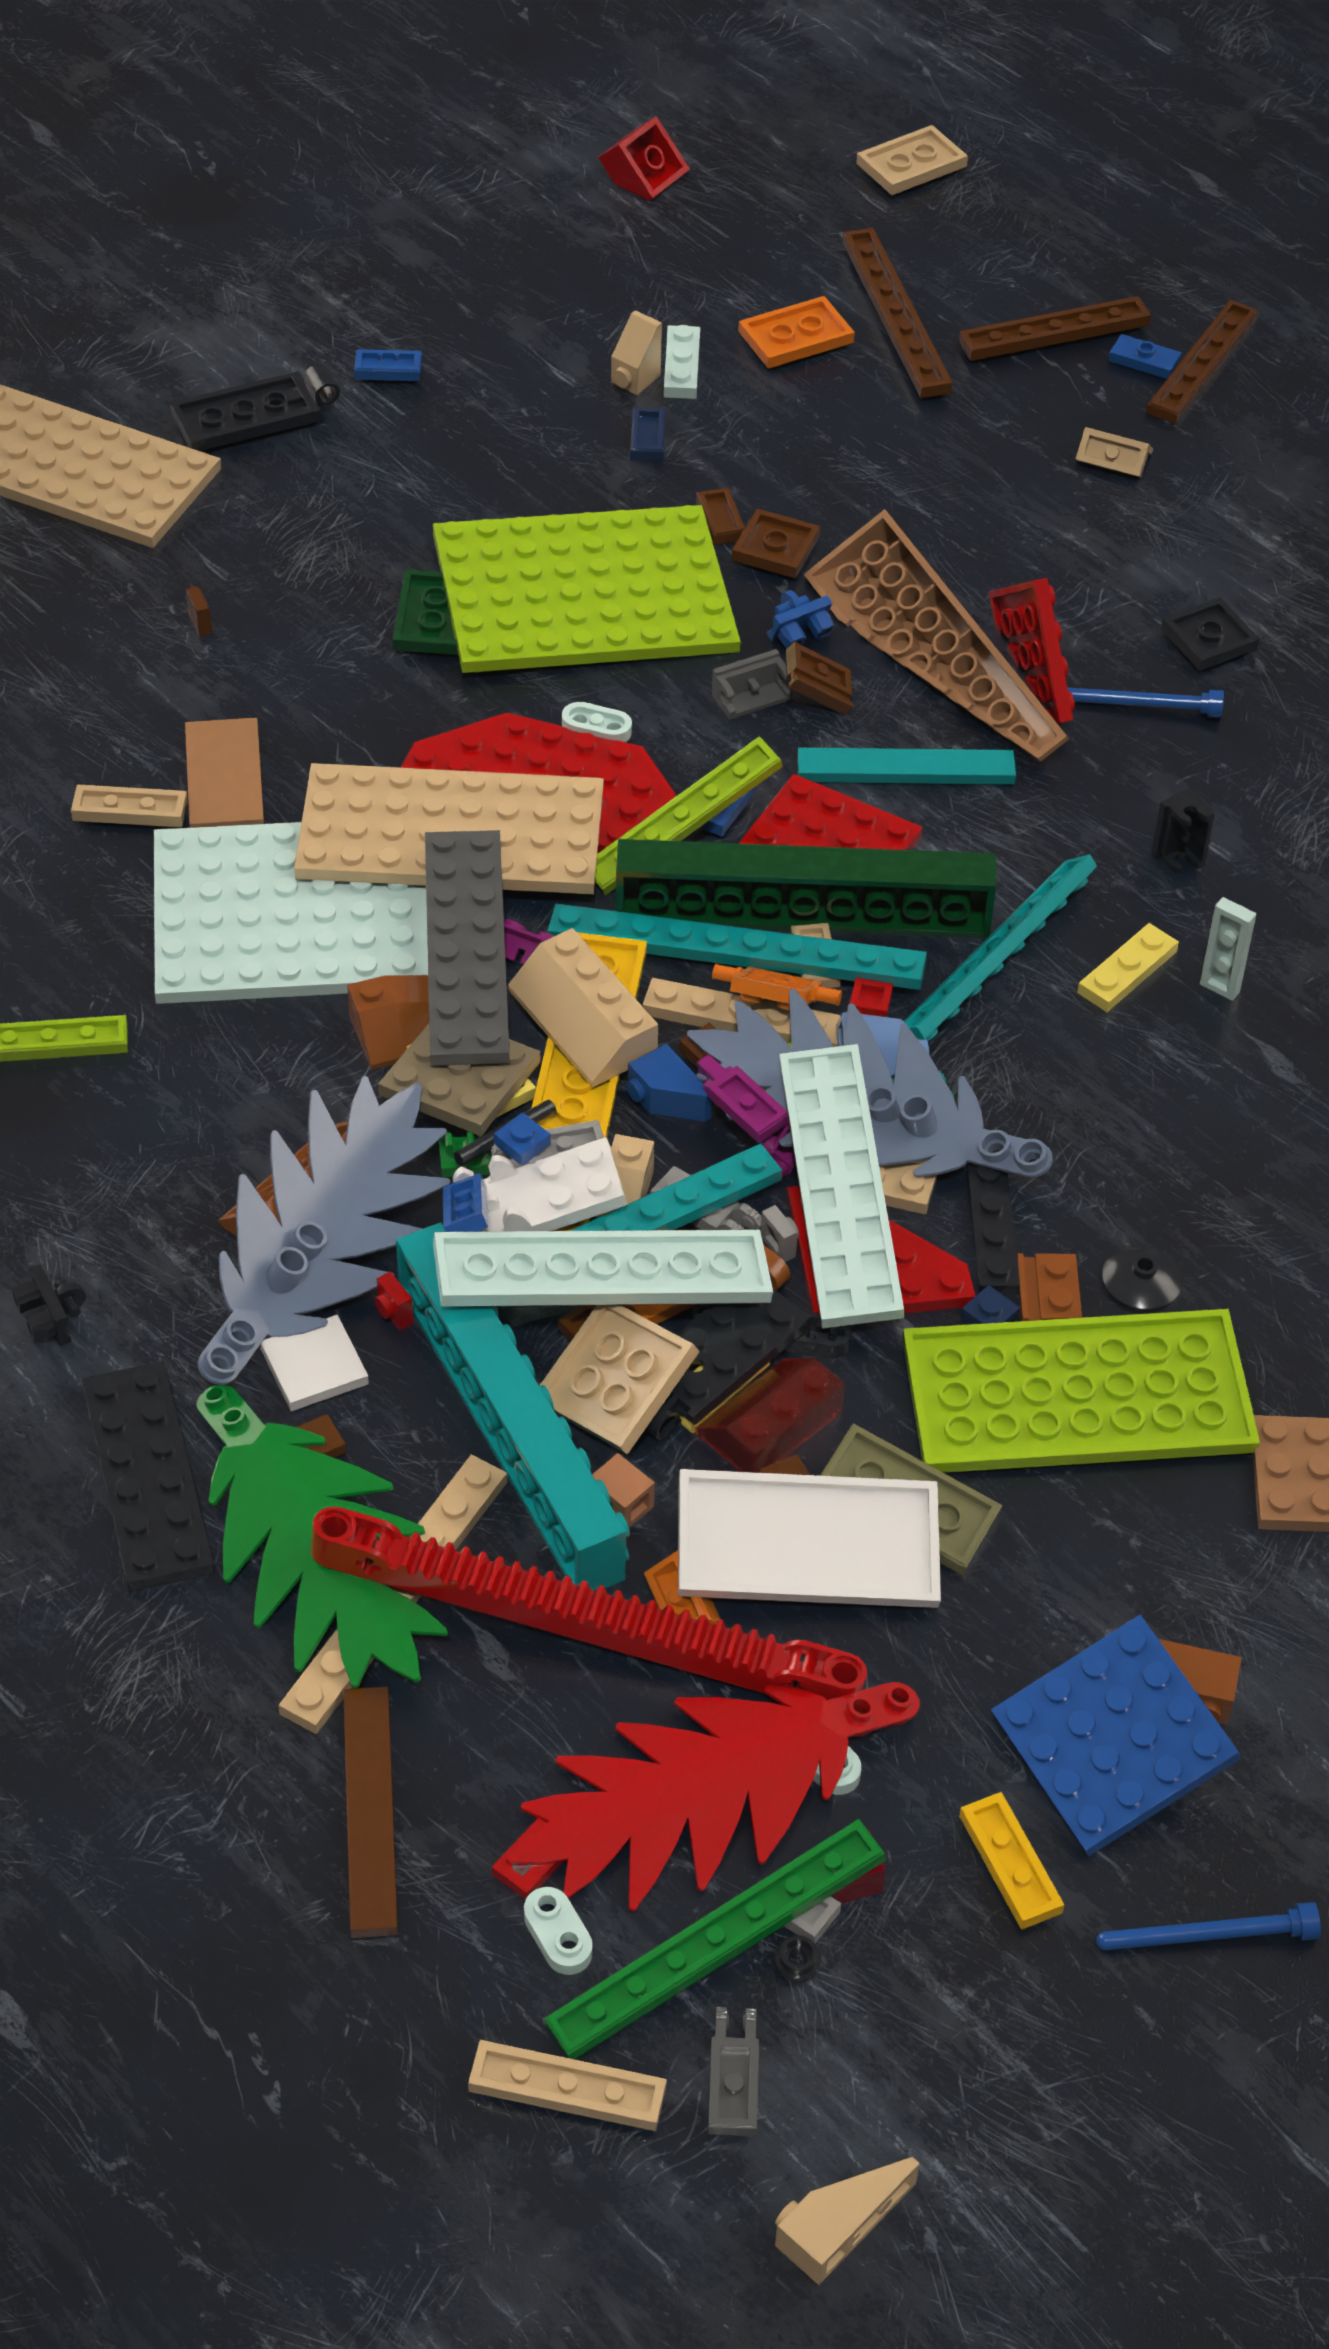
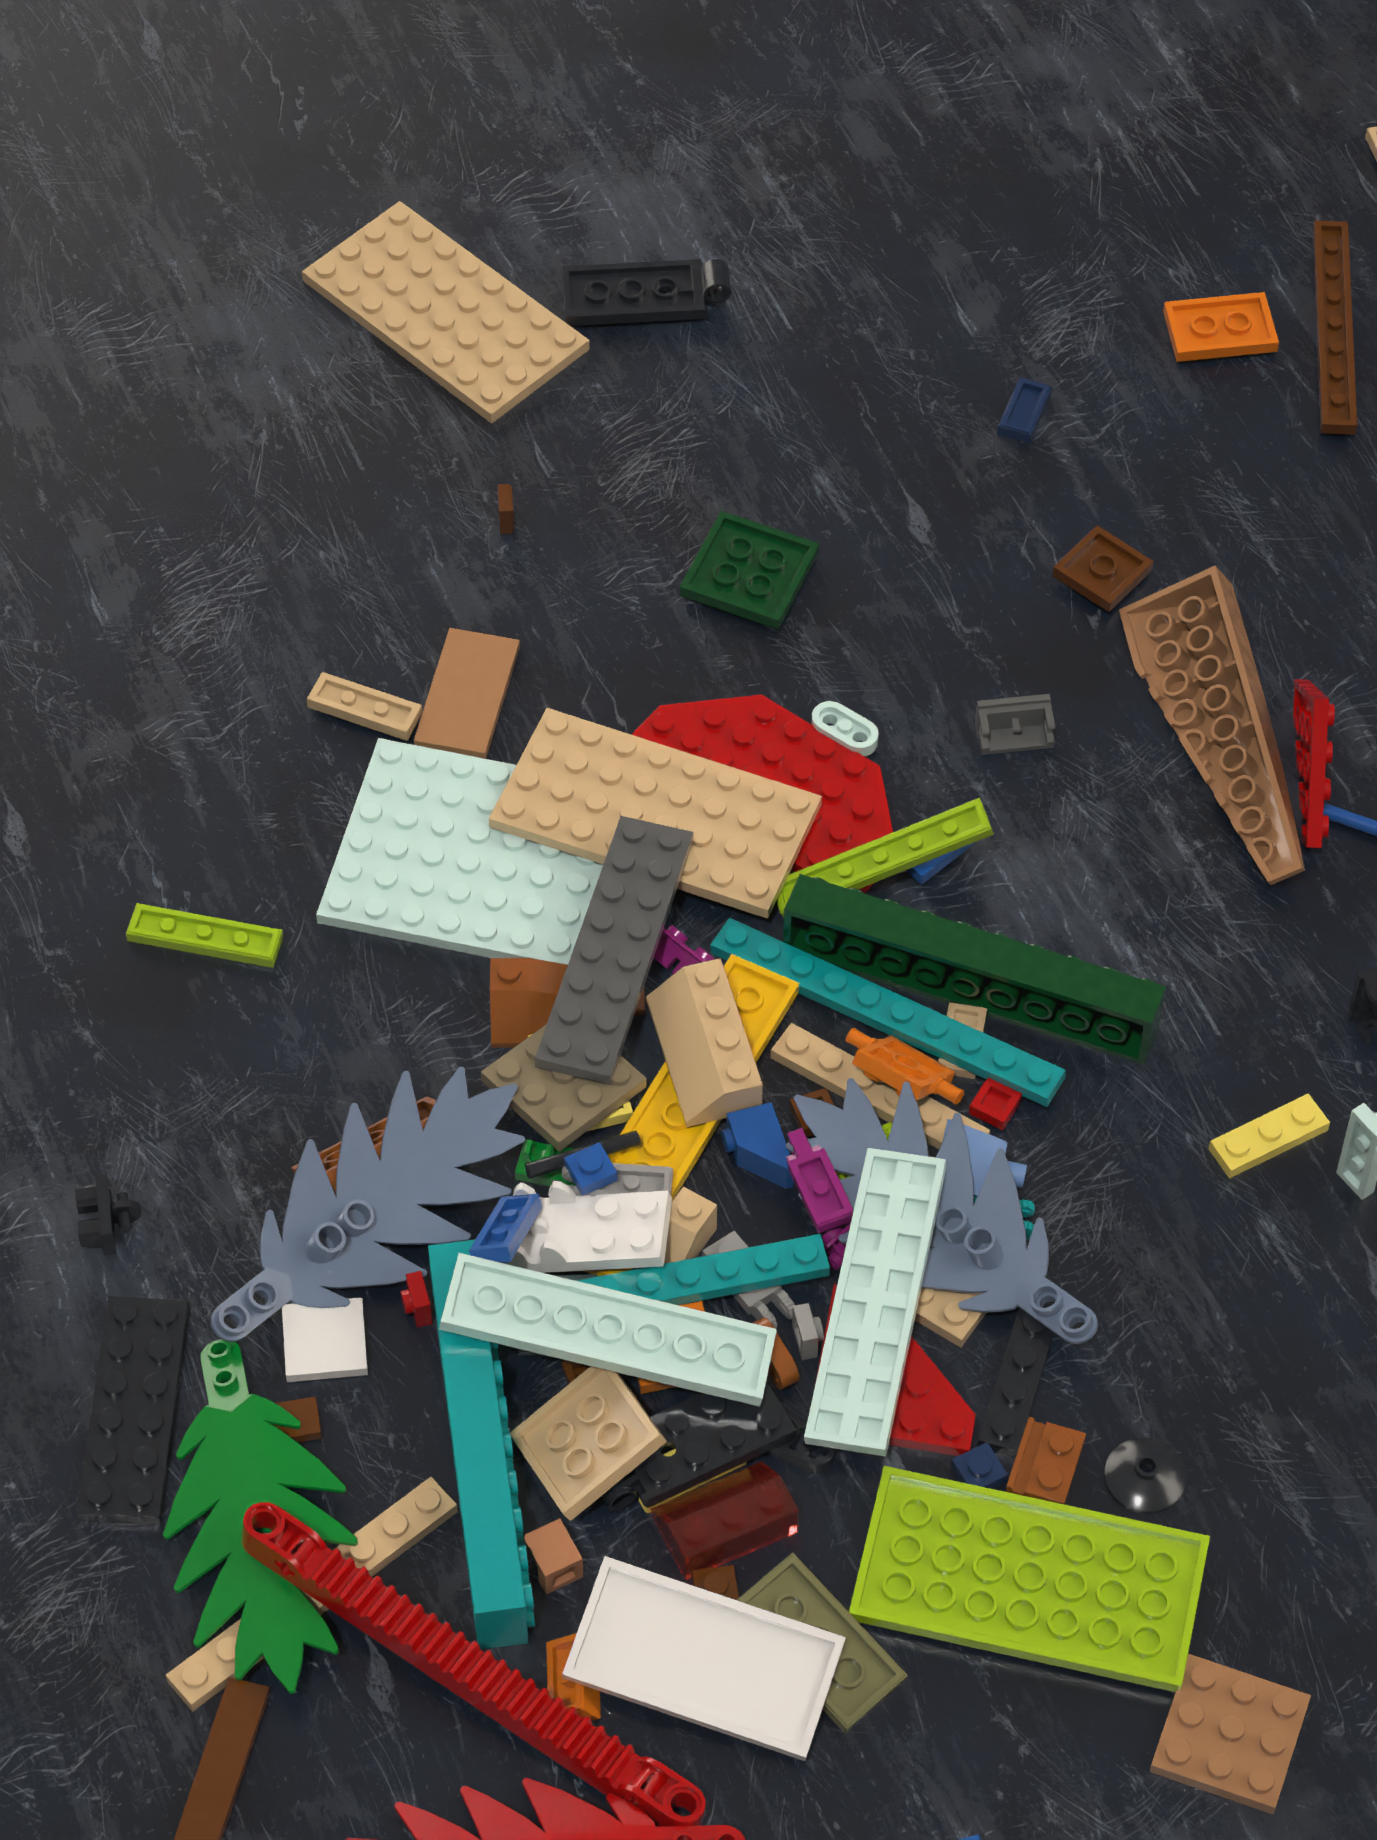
camera: 20 degrees right, 5 degrees up
(388, 365) = (792, 271): blue plate -> none
(584, 588) = (891, 573): lime plate -> none
(637, 354) = (1042, 320): tan slope -> none
(644, 160) = (1142, 88): red slope -> none
(681, 362) = (1091, 334): light aqua plate -> none
(721, 515) = (1061, 521): reddish brown tile -> none
(798, 614) = (1091, 656): blue hips -> none
(819, 678) = (1082, 736): reddish brown plate -> none
(822, 817) = (1027, 901): red plate -> none
(906, 765) = (1136, 853): teal tile -> none
(998, 946) = (1152, 1076): teal plate -> none

